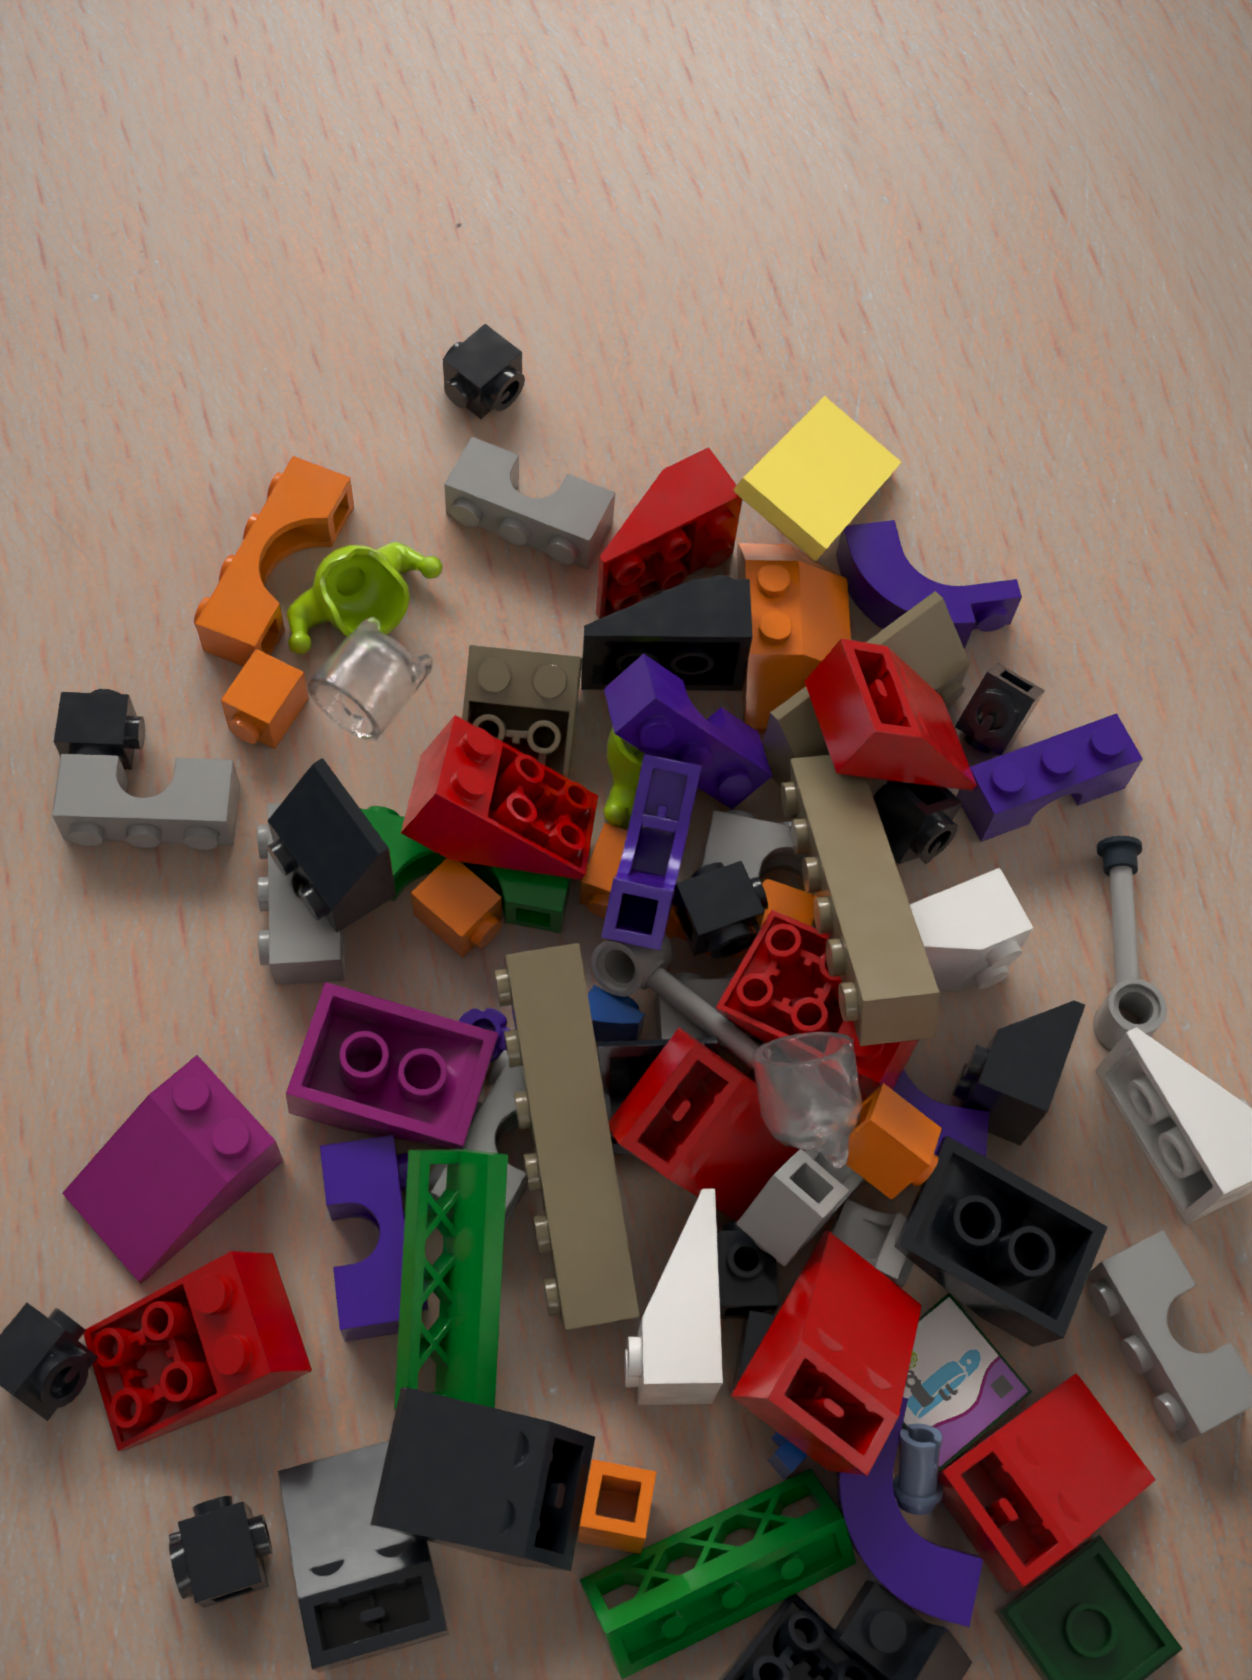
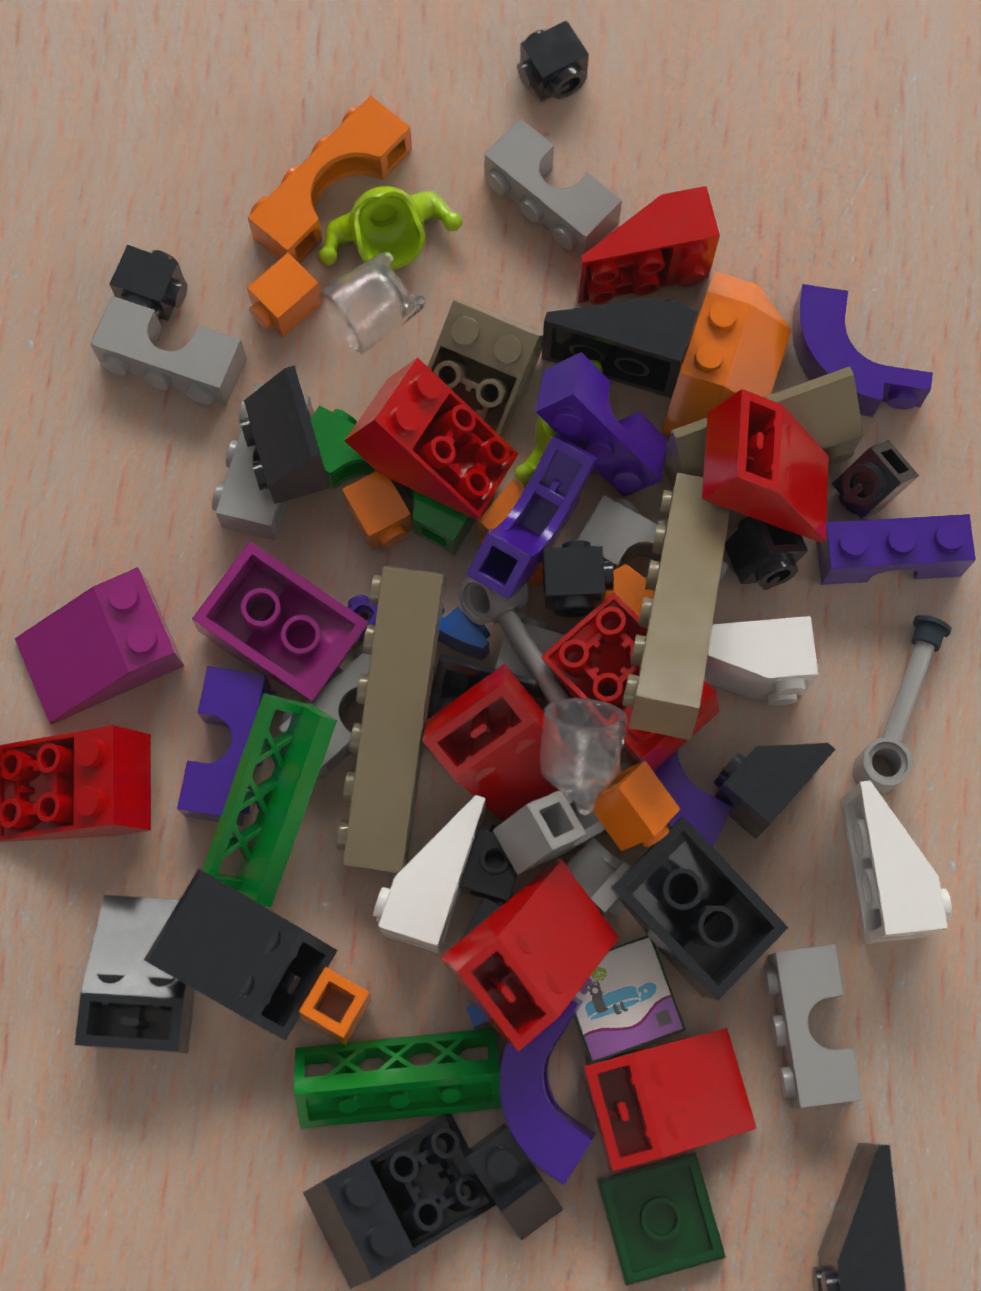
camera: 25 degrees right, 10 degrees up
(220, 1552) = (43, 938): black brick -> none
(817, 478) = (795, 235): light yellow tile -> none
(917, 1482) = (566, 1067): sand blue pin -> none

